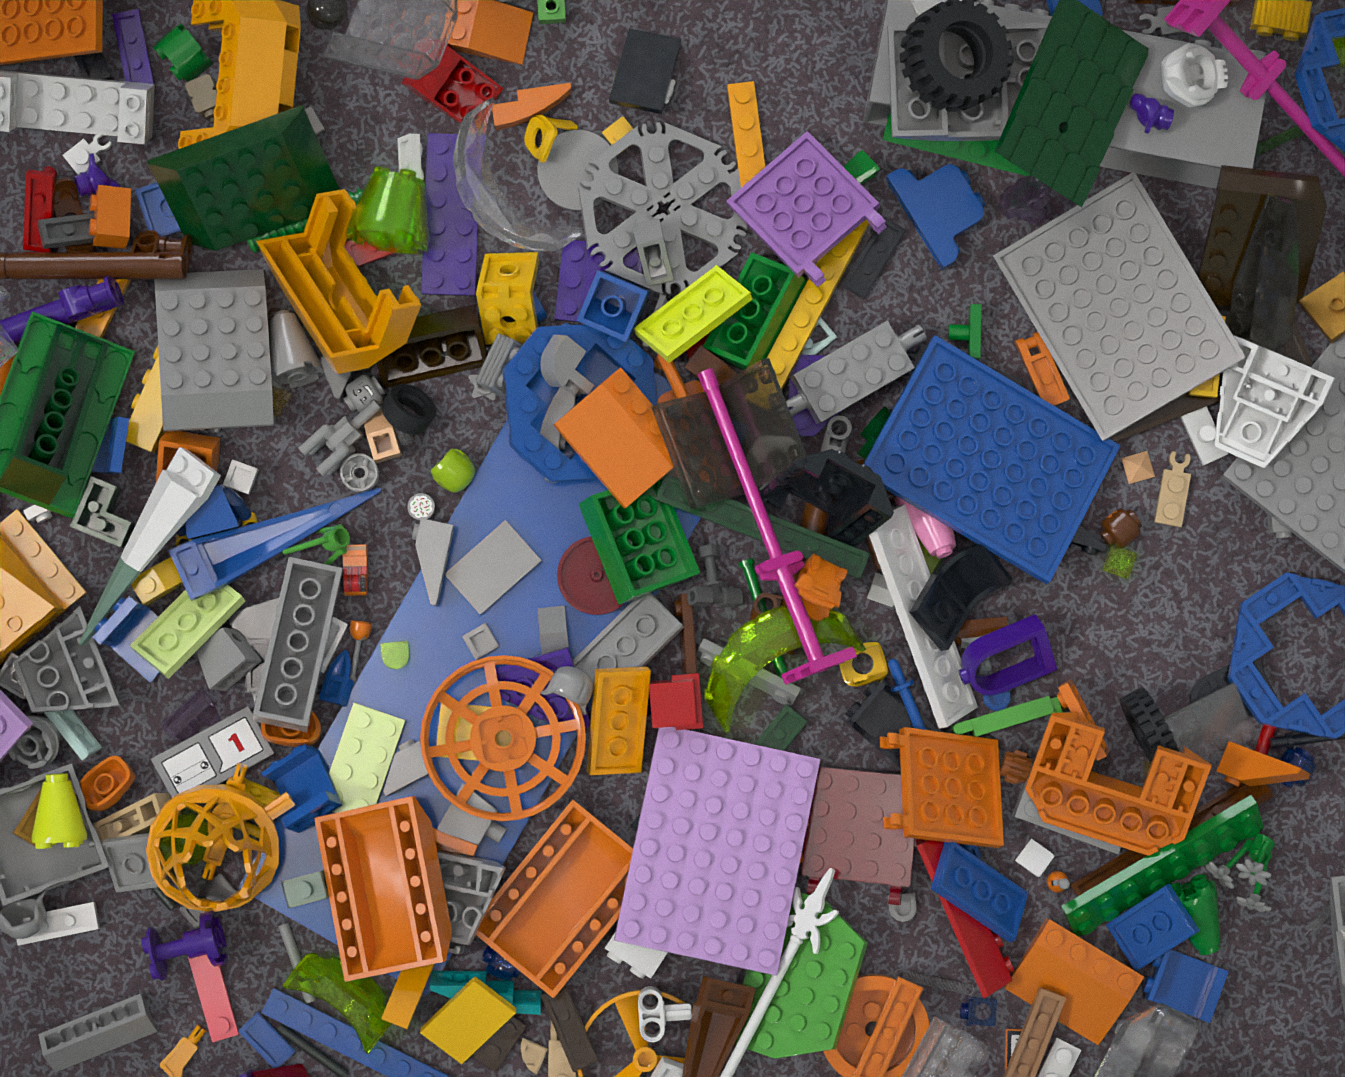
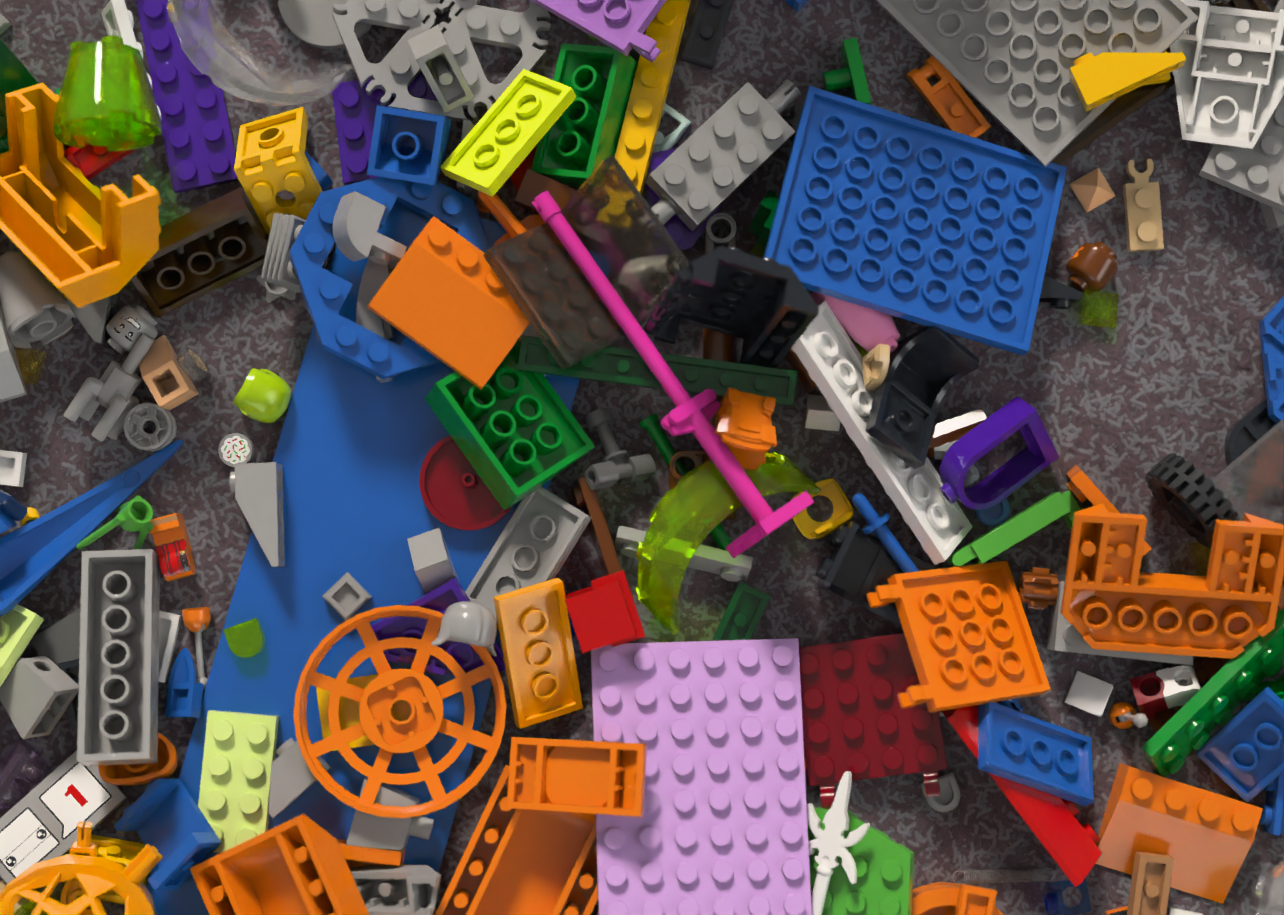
camera: 15 degrees left, 0 degrees up
(403, 419) = (186, 348): black tyre -> none
(493, 567) = (340, 502): light grey tile -> none
(625, 820) = (577, 776): none -> orange slope
(930, 564) = (875, 366): none -> tan tile
(1091, 868) = (1164, 689): none -> leg
(1167, 385) = (1117, 73): none -> yellow slope
(1202, 435) = (1161, 132): white tile -> none

